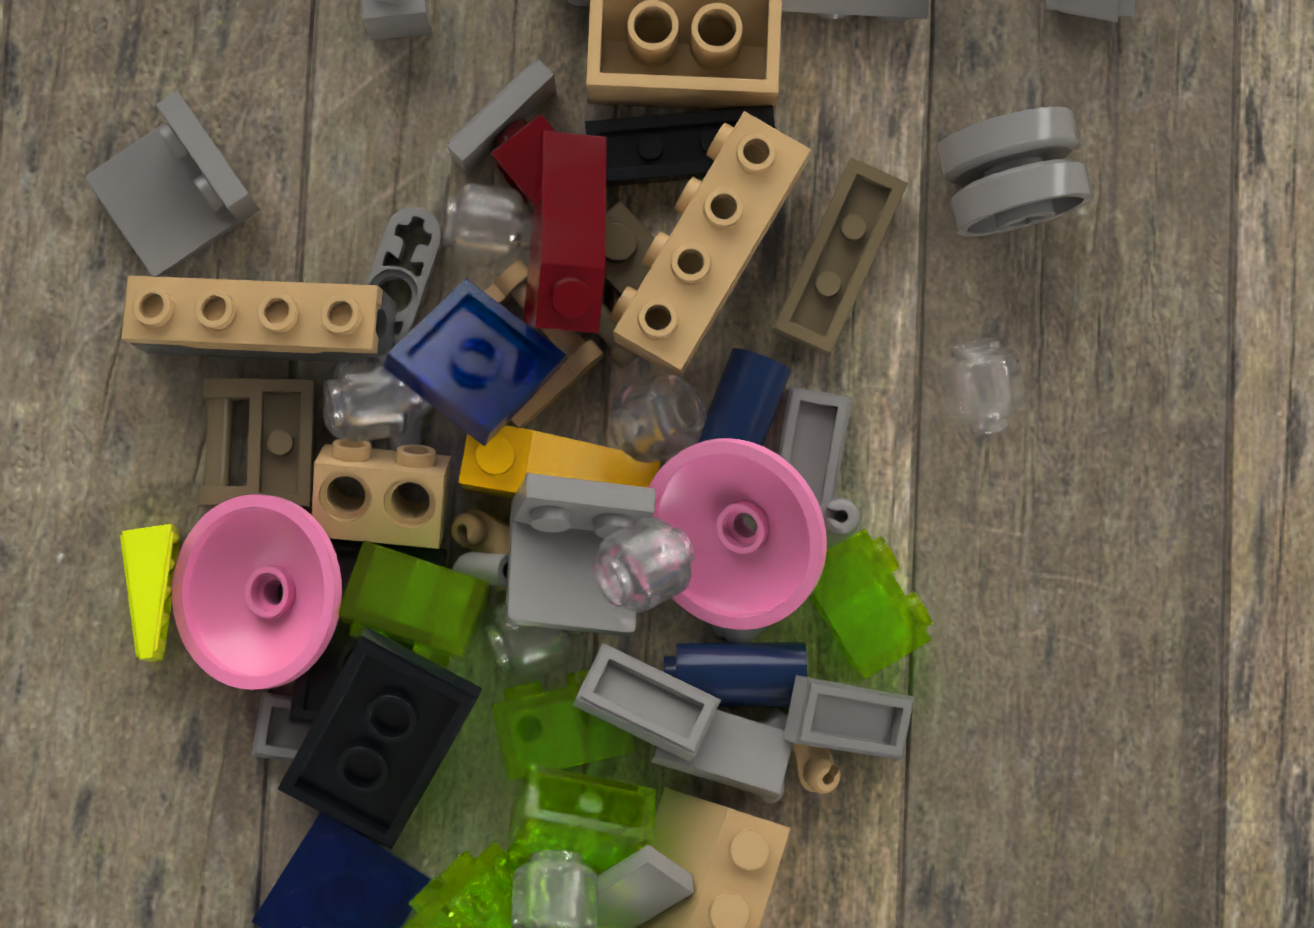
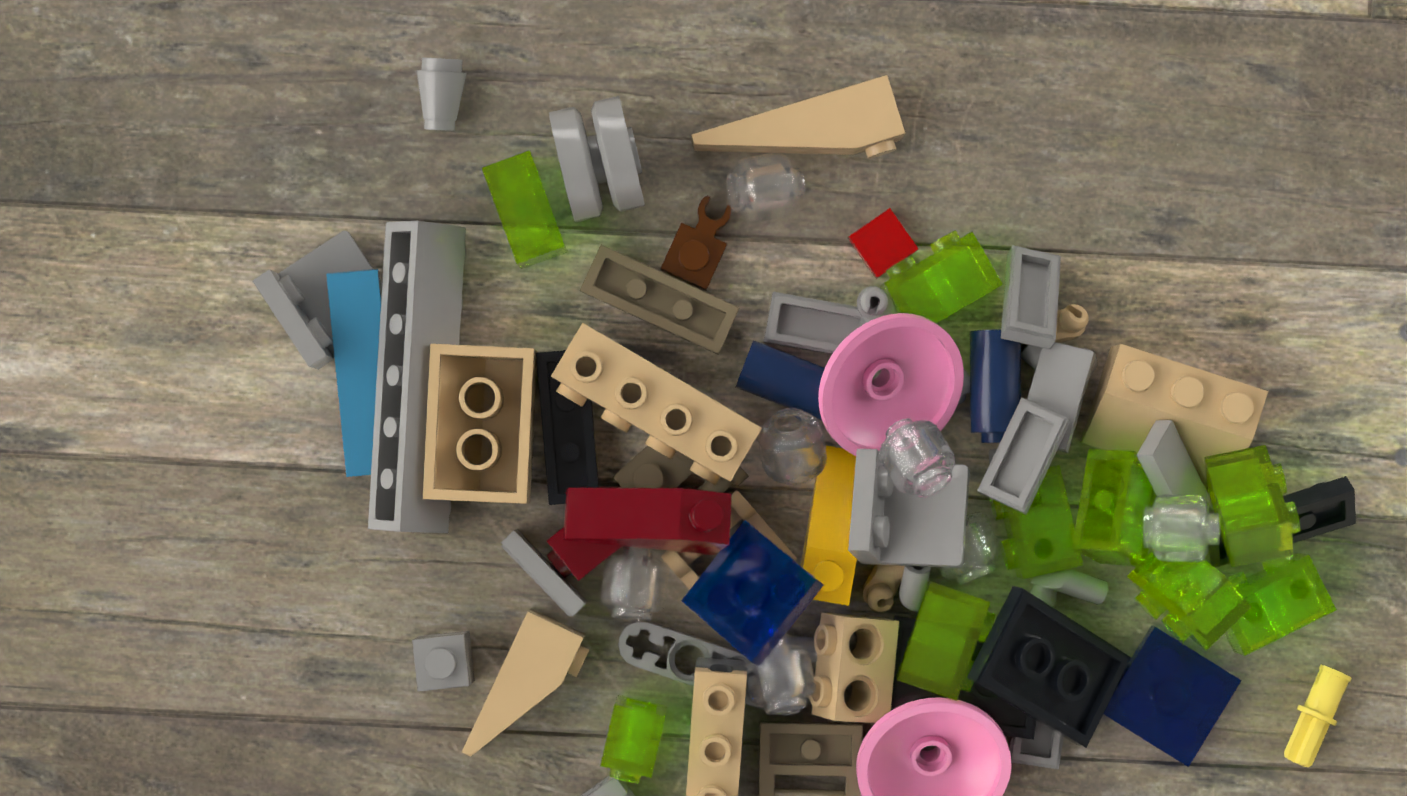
camera: 90 degrees left, 5 degrees up
(296, 219) = (633, 739): none -> clear neon green brick
(386, 104) = (531, 671): none -> tan slope
(485, 770) = (1069, 583): none -> arm
(900, 303) = (695, 251): none -> reddish brown plate
(915, 534) = (882, 243): none -> red tile
(949, 90) = (524, 209): none -> clear neon green brick
(1065, 471) = (832, 123): none -> tan slope

